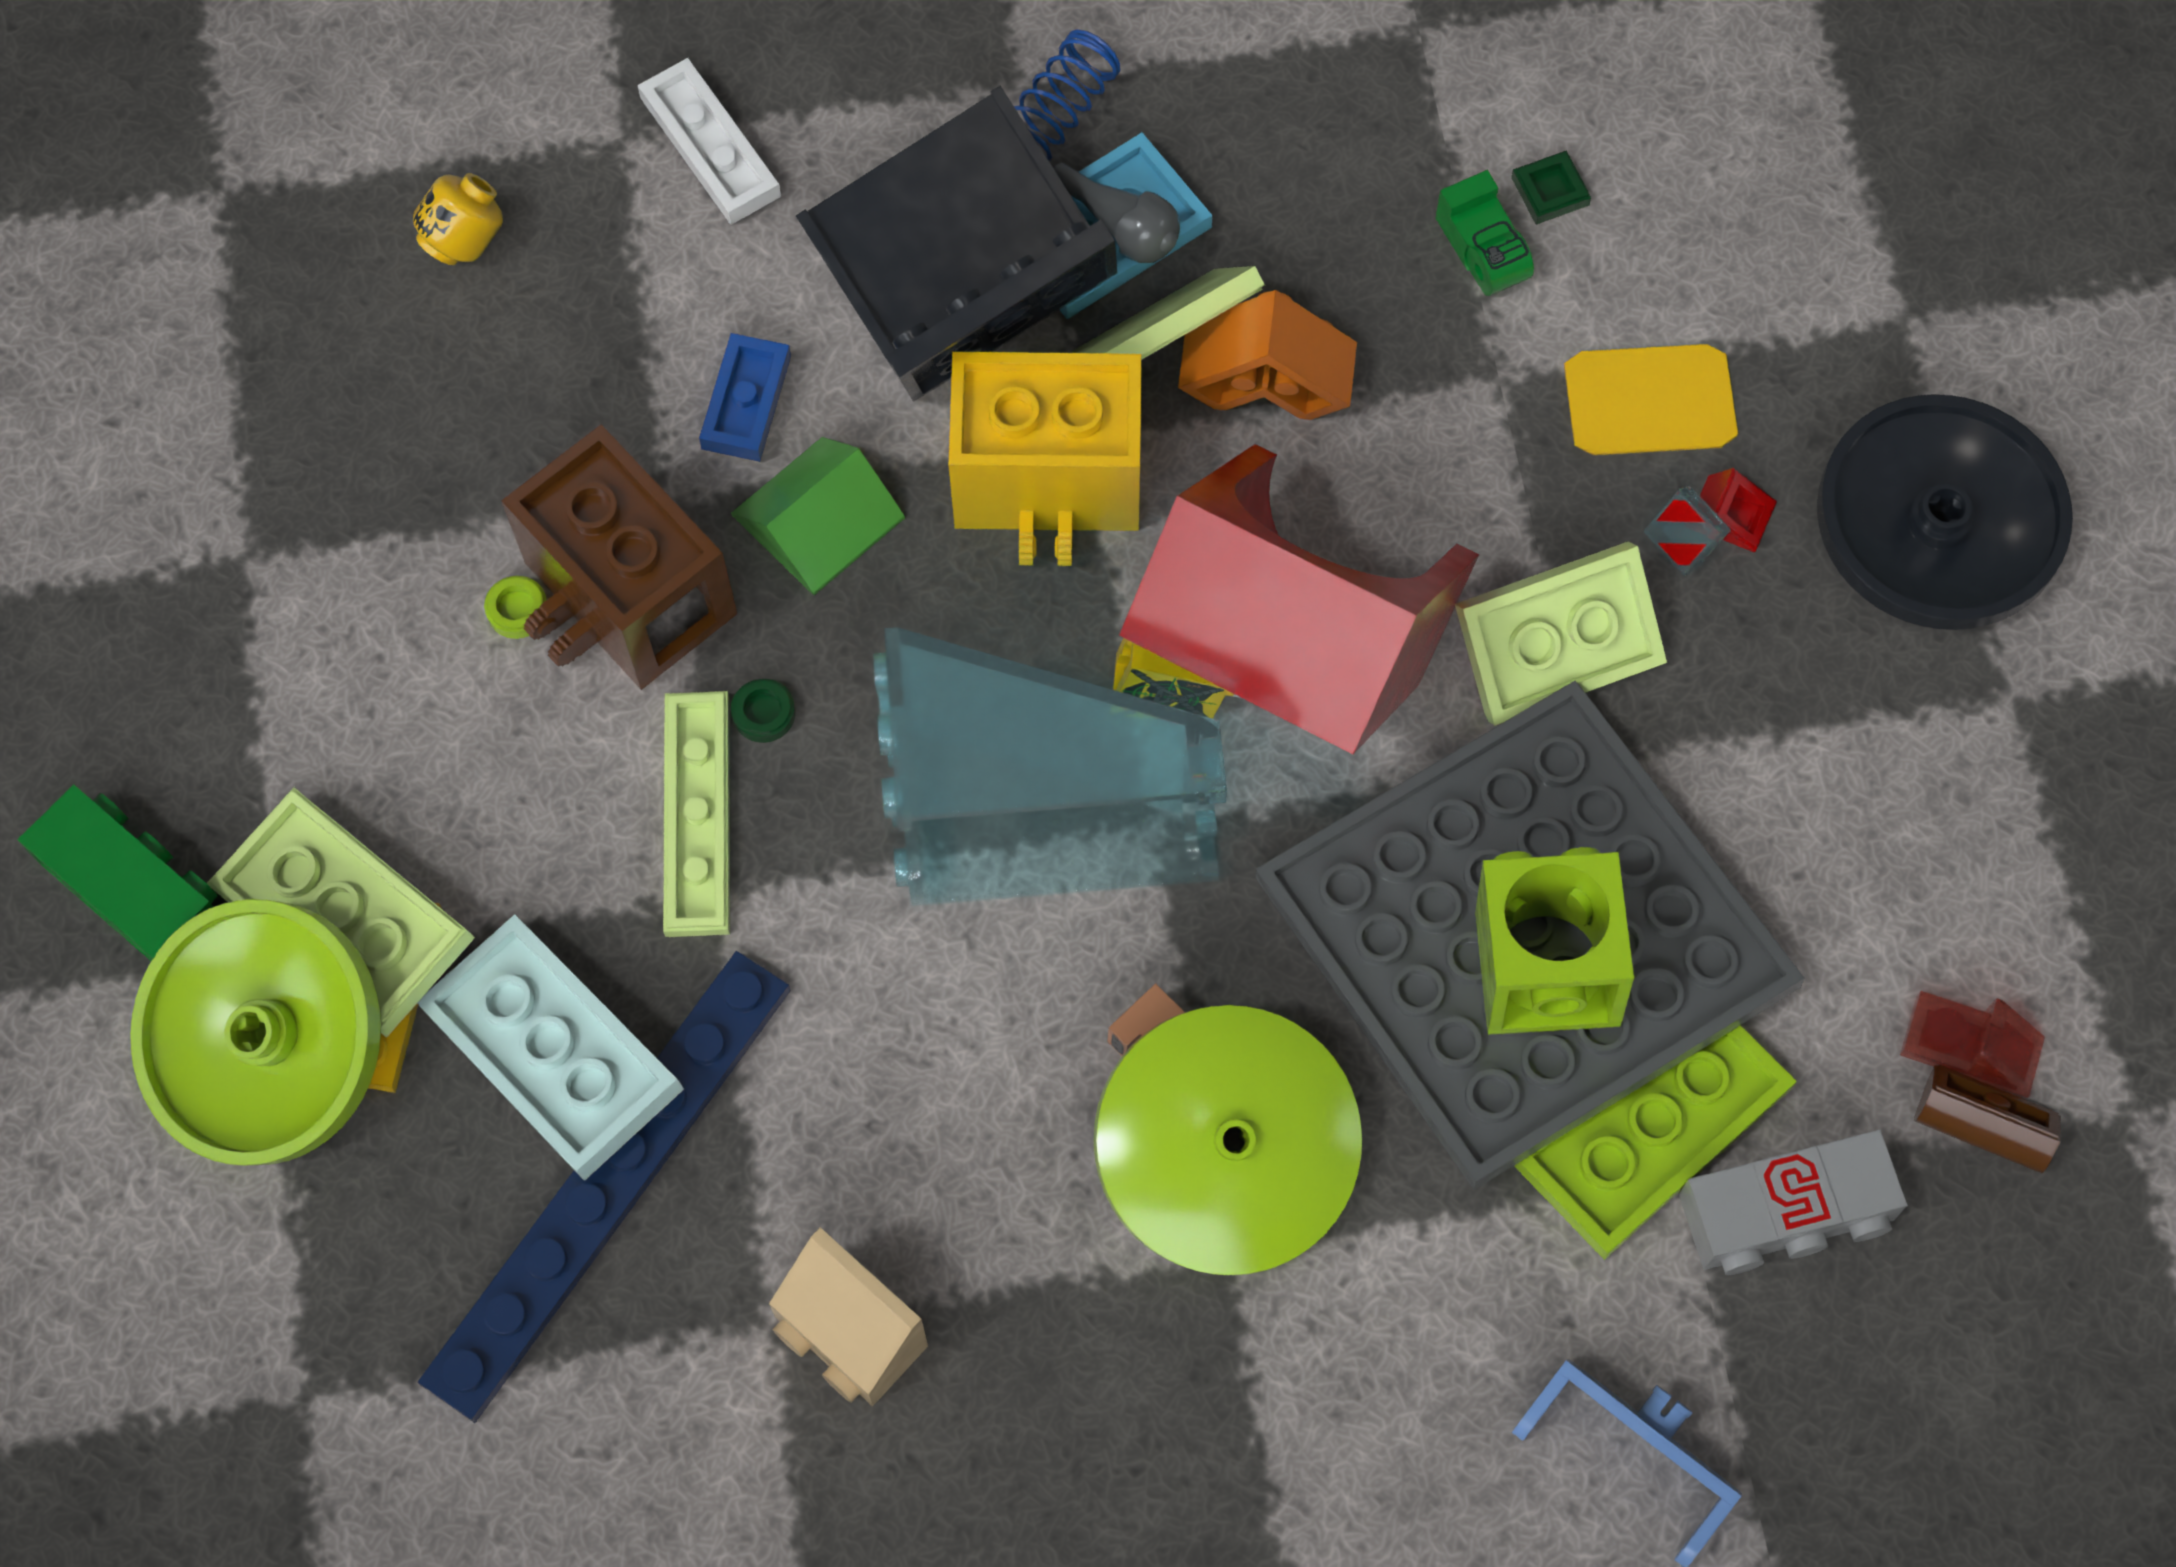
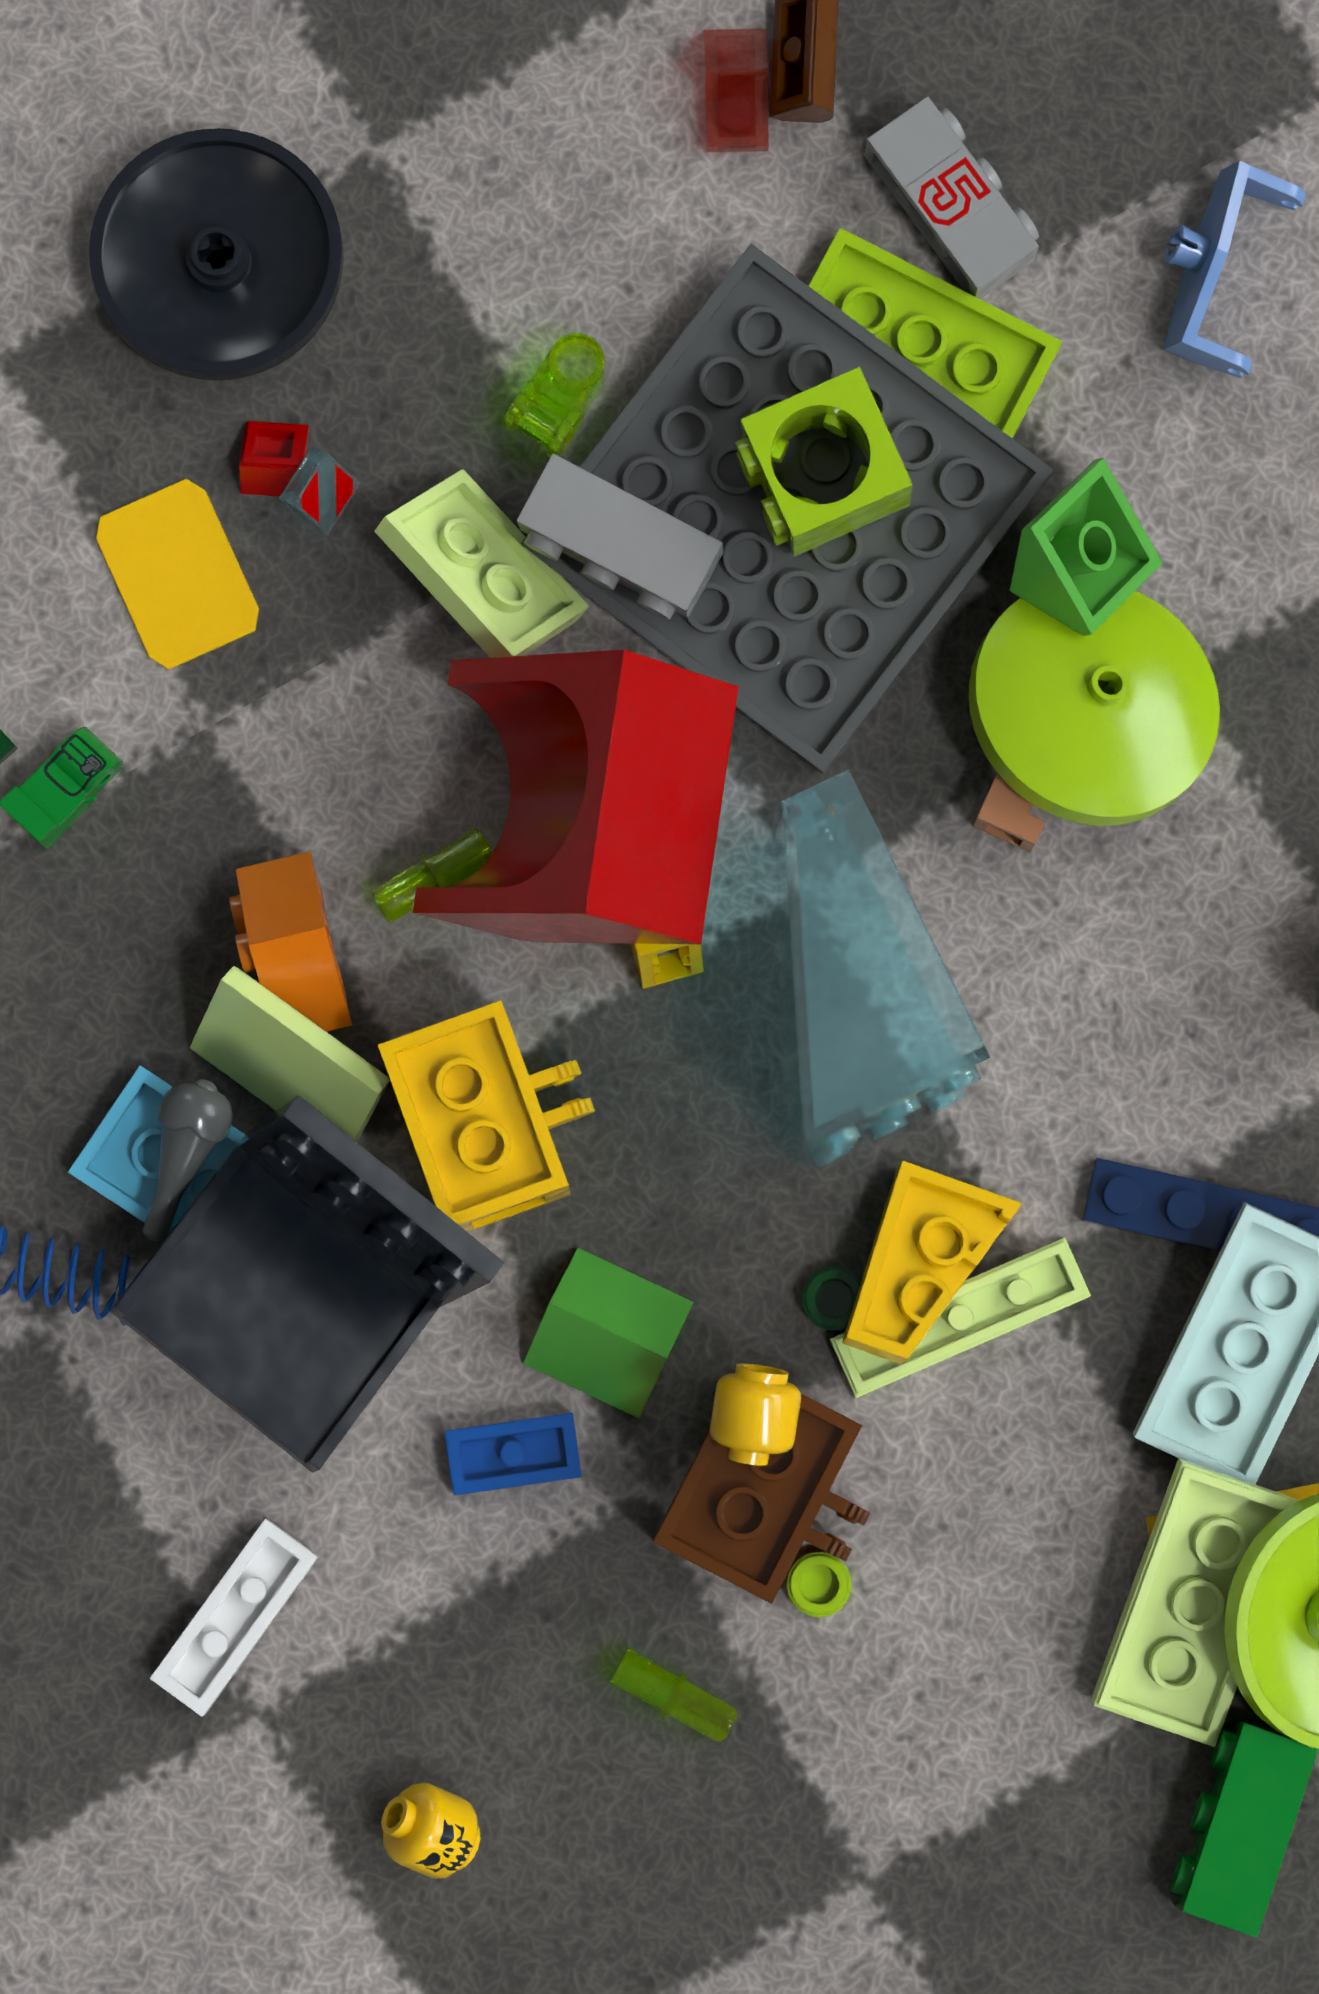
camera: 115 degrees left, 15 degrees up
(478, 453) = (674, 1696): none -> clear neon green axle
(670, 529) = (755, 1413): none -> yellow head
(763, 788) = (920, 1258): none -> yellow wing
(1290, 503) = (439, 869): none -> clear neon green axle
(1380, 1178) = (1084, 552): none -> bright green slope
(1546, 751) = (618, 539): none -> light grey brick
(1704, 757) = (557, 398): none -> clear neon green piece

